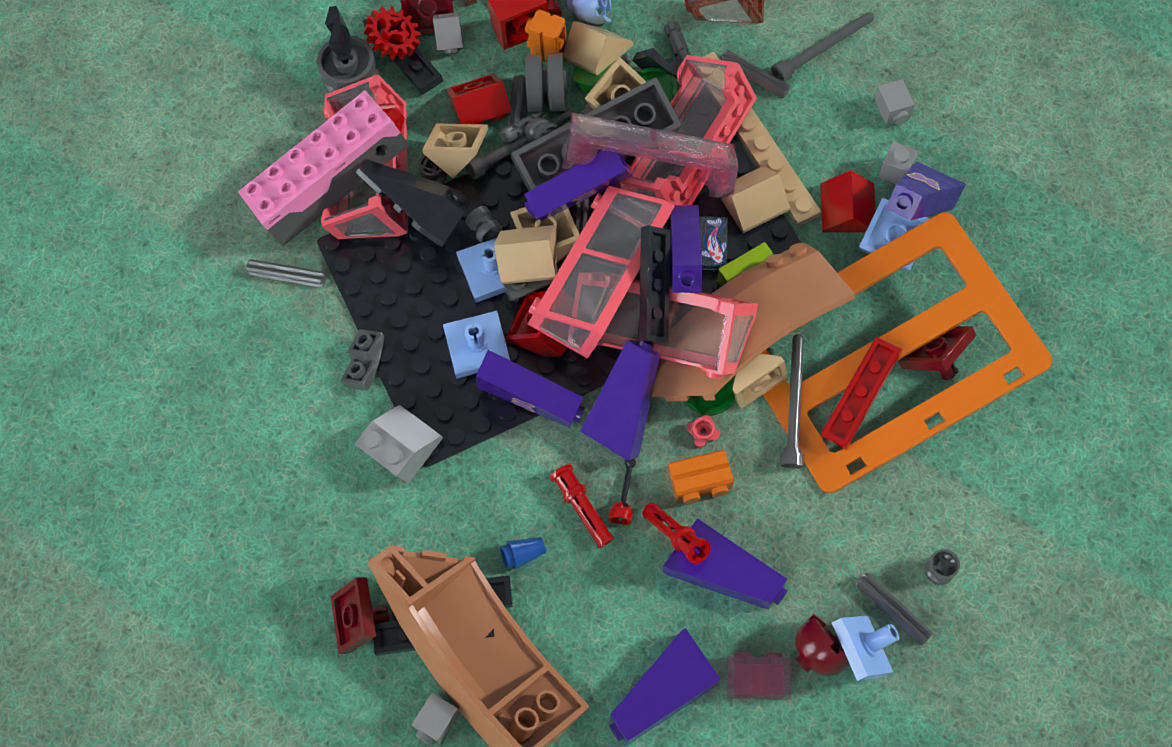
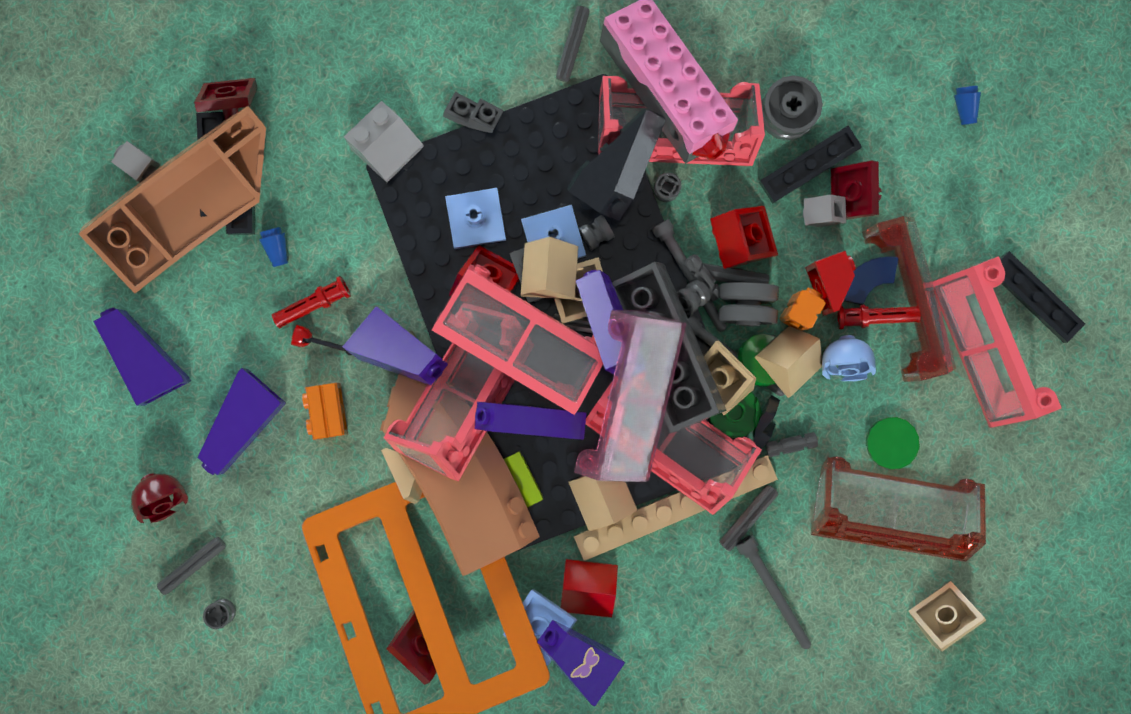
camera: 90 degrees right, 20 degrees up
(340, 37) = (813, 99): black slope -> none
(392, 33) = (830, 144): red gear -> none
(454, 145) = (684, 208): tan slope -> none
(528, 390) = (415, 261): dark purple slope -> none
(654, 285) = (486, 385): black plate -> none
(657, 516) = (259, 386): red pin -> none
(704, 422) = (364, 416): coral plate -> none
(713, 242) = (556, 450): tile -> none
(758, 676) = (141, 439): clear pink brick -> none
(792, 453) = (337, 496): dark grey piece -> none
(861, 393) = (384, 568): red tile -> none
(865, 646) = (150, 533): light blue tile -> none
(894, 102) = (696, 652): light grey brick -> none
(897, 162) = (625, 644): light grey brick -> none

